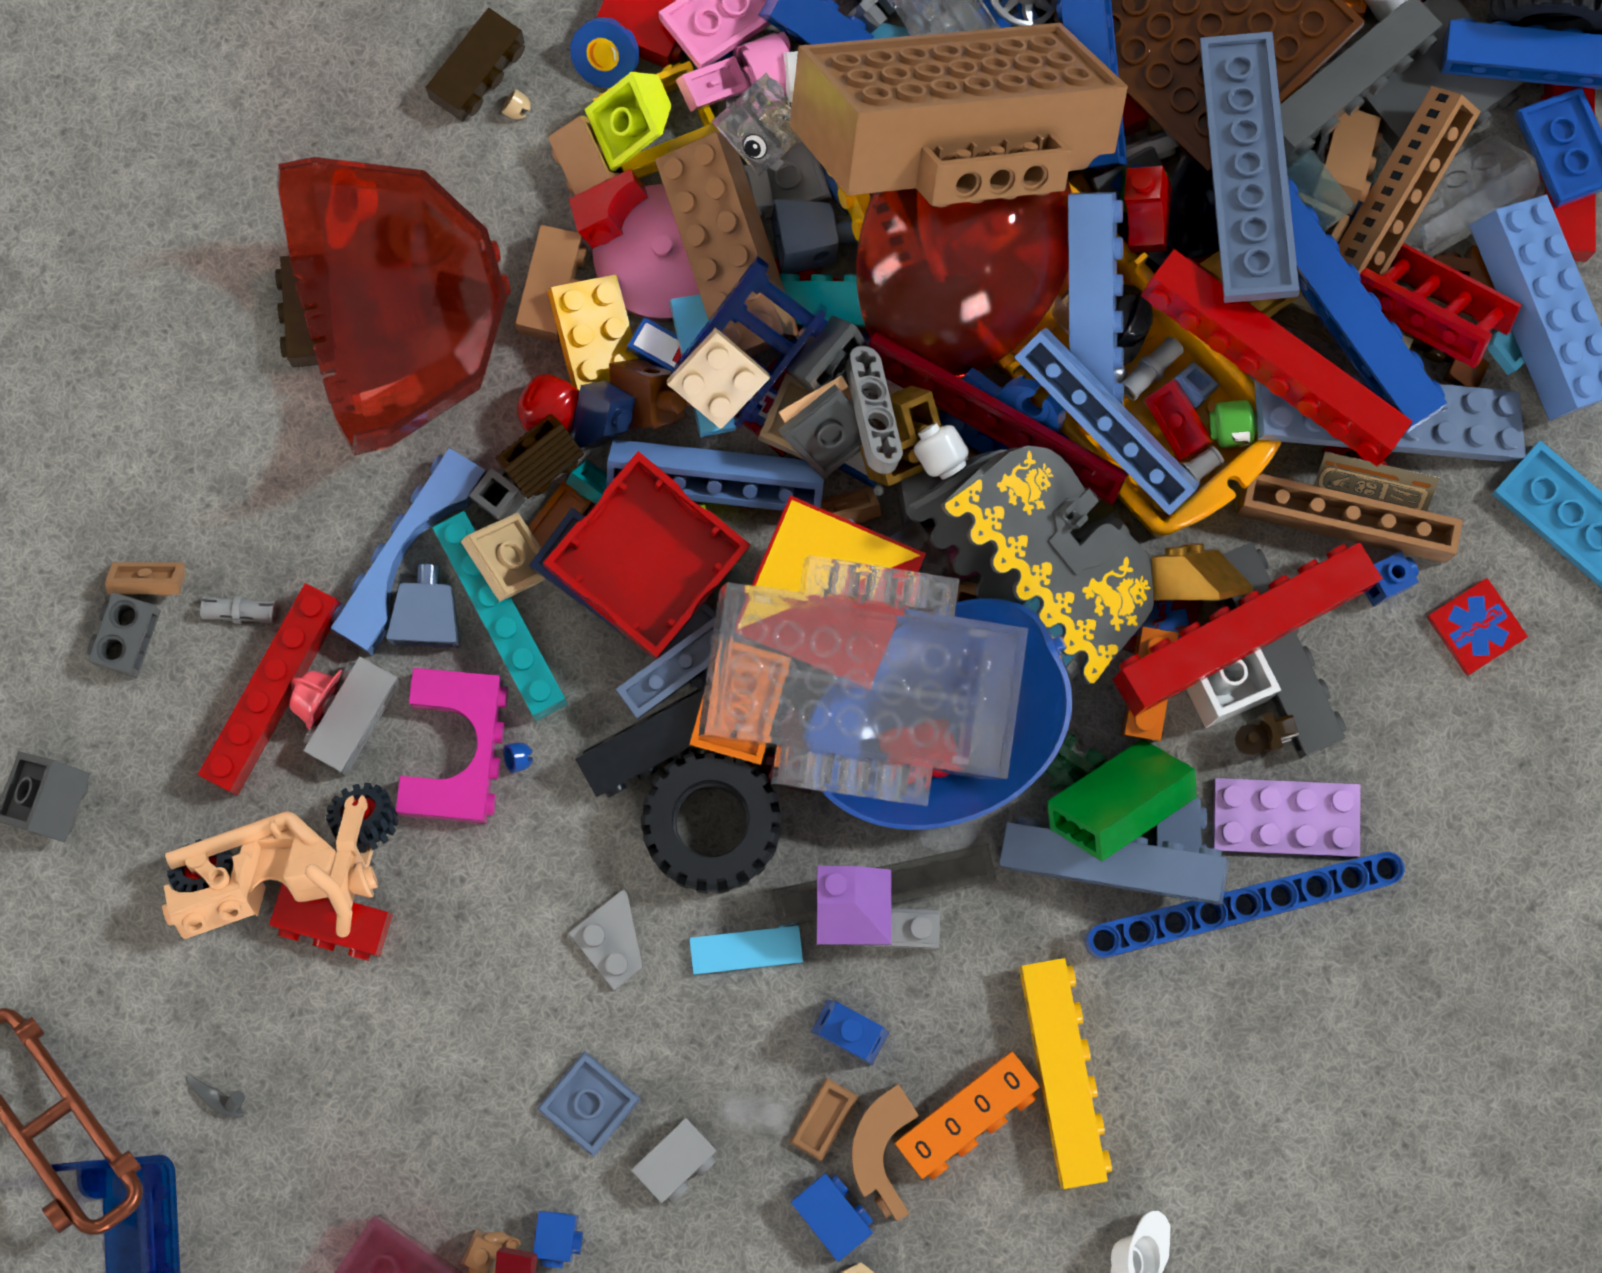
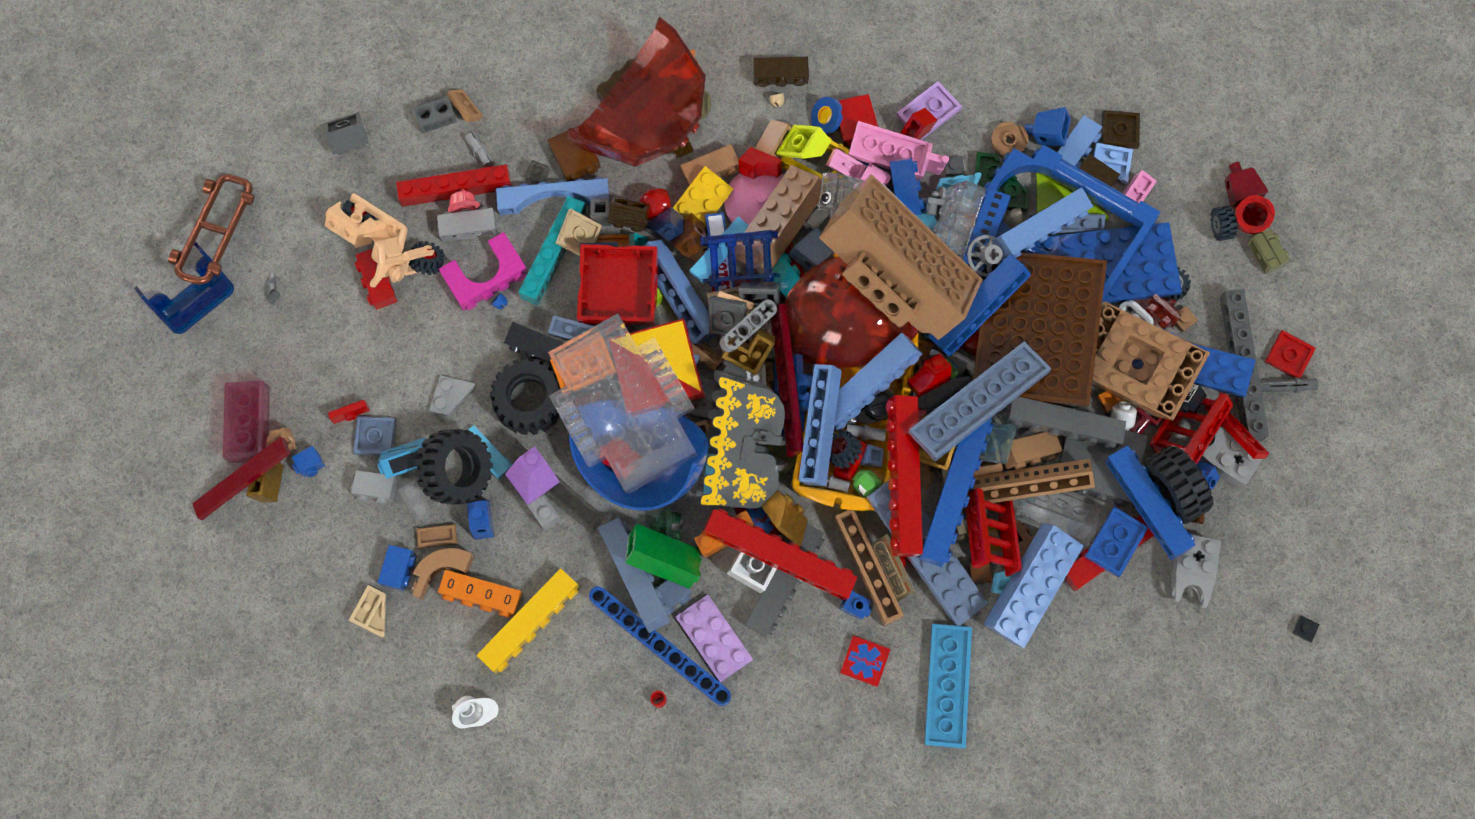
camera: 55 degrees right, 5 degrees down
(358, 555) = (540, 176): none -> clear smoke plate
(364, 480) = (571, 159): none -> reddish brown brick
(425, 612) = (532, 220): sand blue torso -> none
(523, 1116) = (349, 412): none -> red plate
(670, 1080) = (399, 459): none -> dark azure brick
(718, 378) = (714, 256): tan plate -> none
(721, 1033) = (432, 462): none -> black tyre
(941, 450) = (752, 366): white head -> none
(1162, 399) = (851, 446): none -> black wheel
(1265, 735) = (740, 600): dark brown hips -> none
(1313, 964) = (656, 696): none -> red hinge

